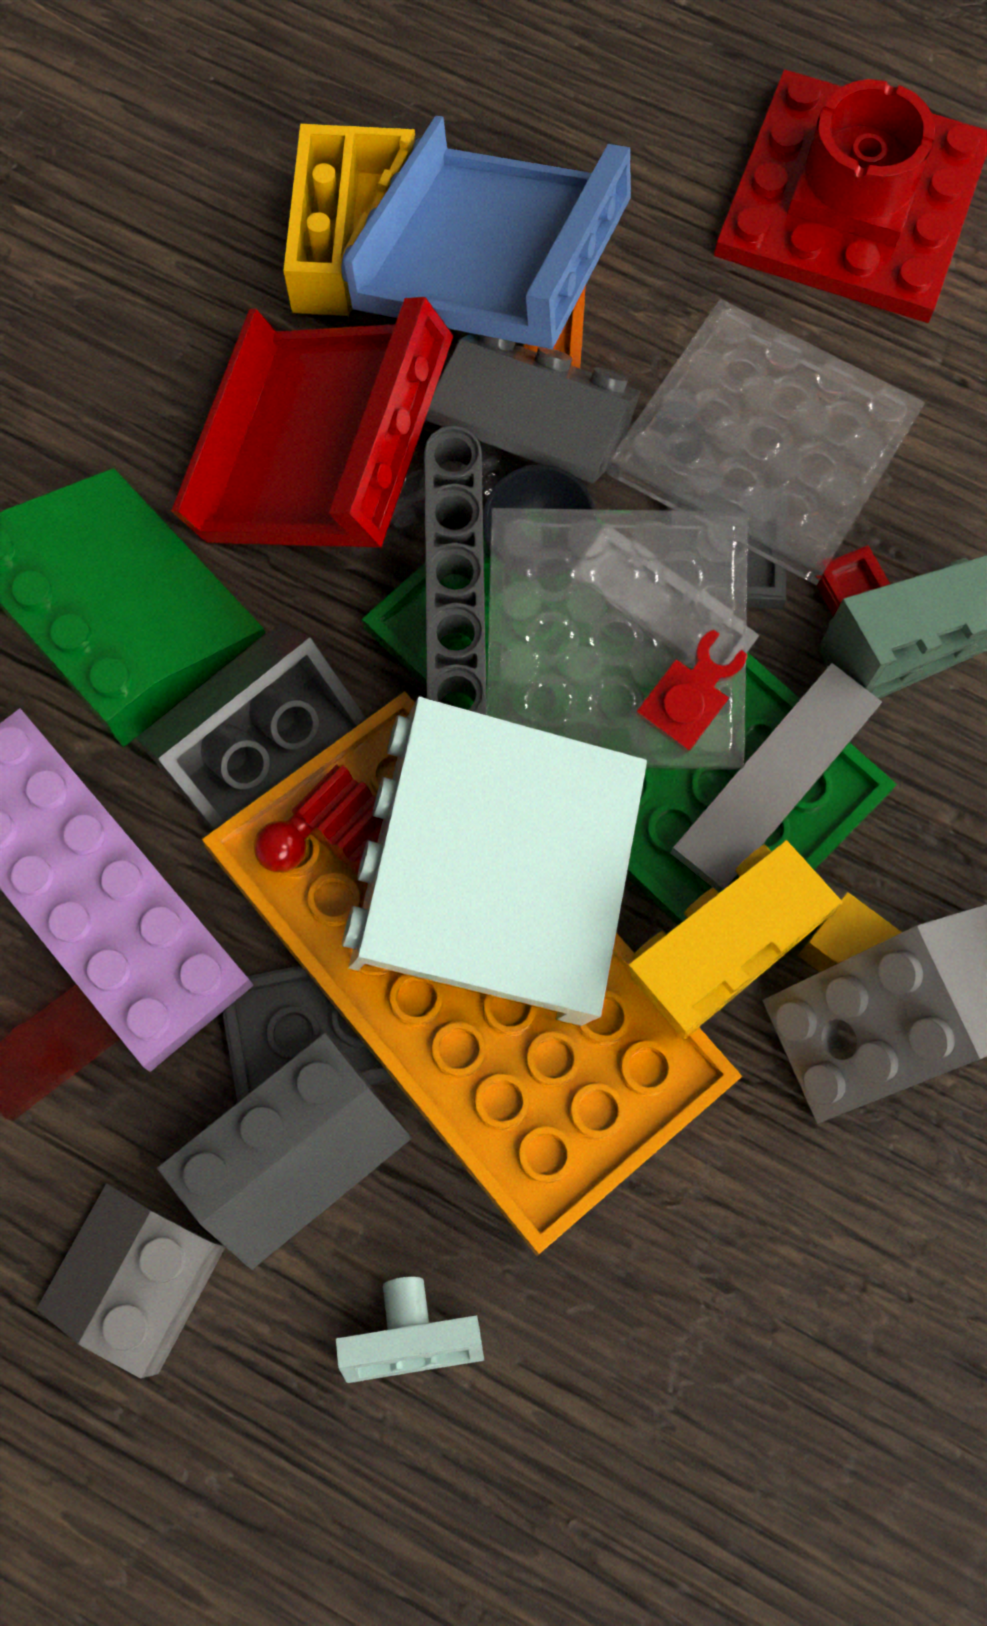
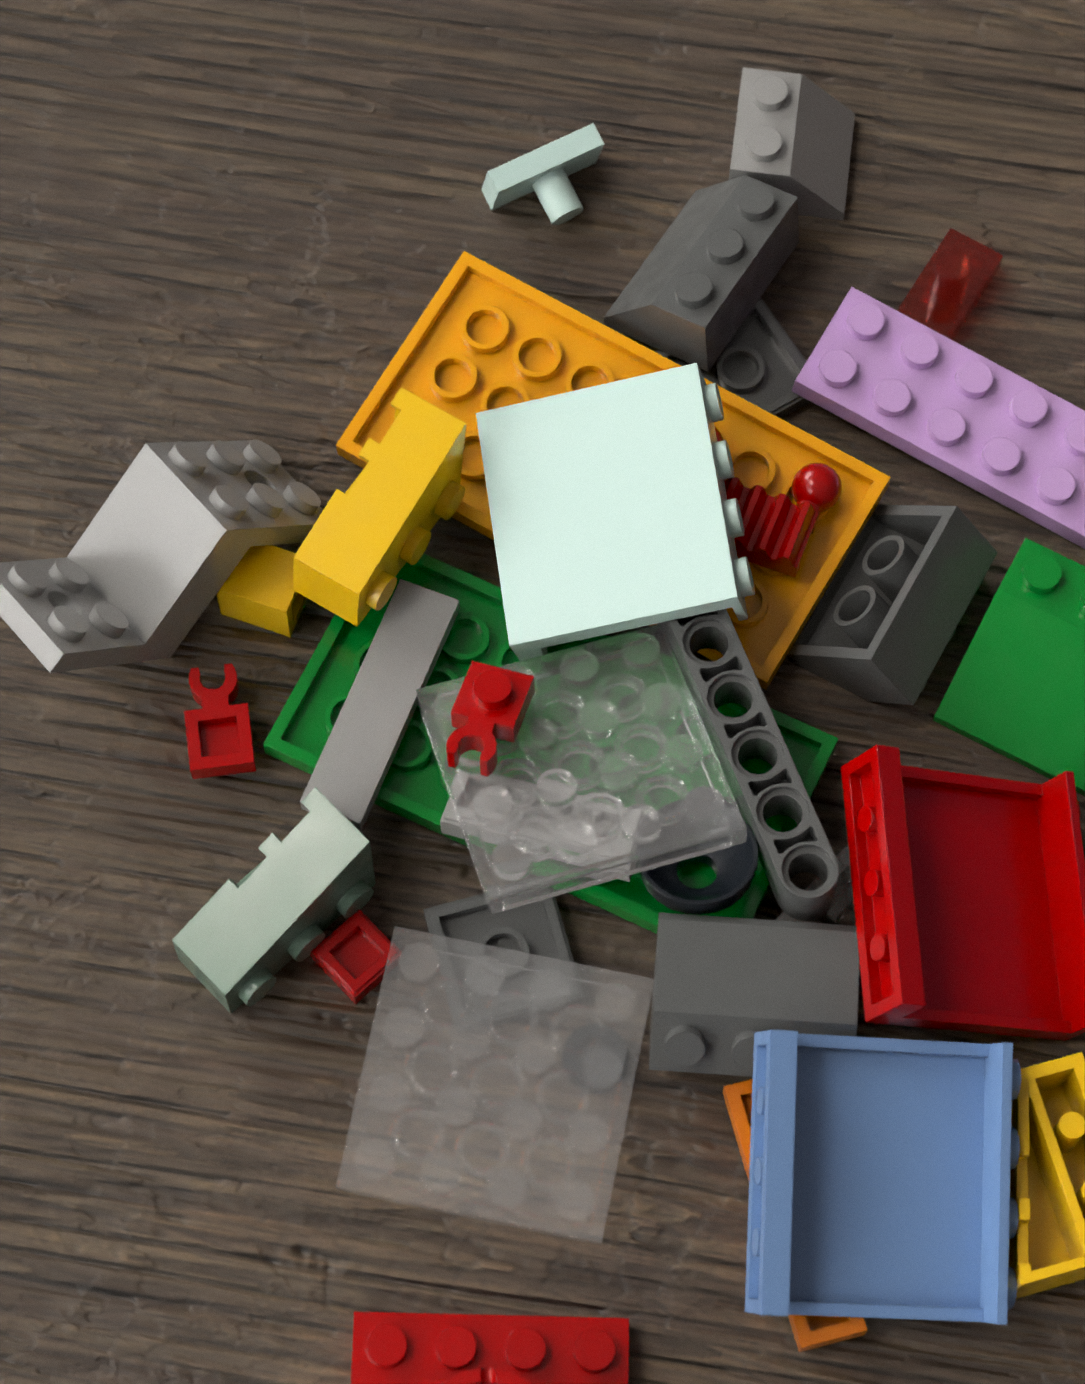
camera: 160 degrees right, 5 degrees down
(934, 816) = (219, 732): none -> red plate

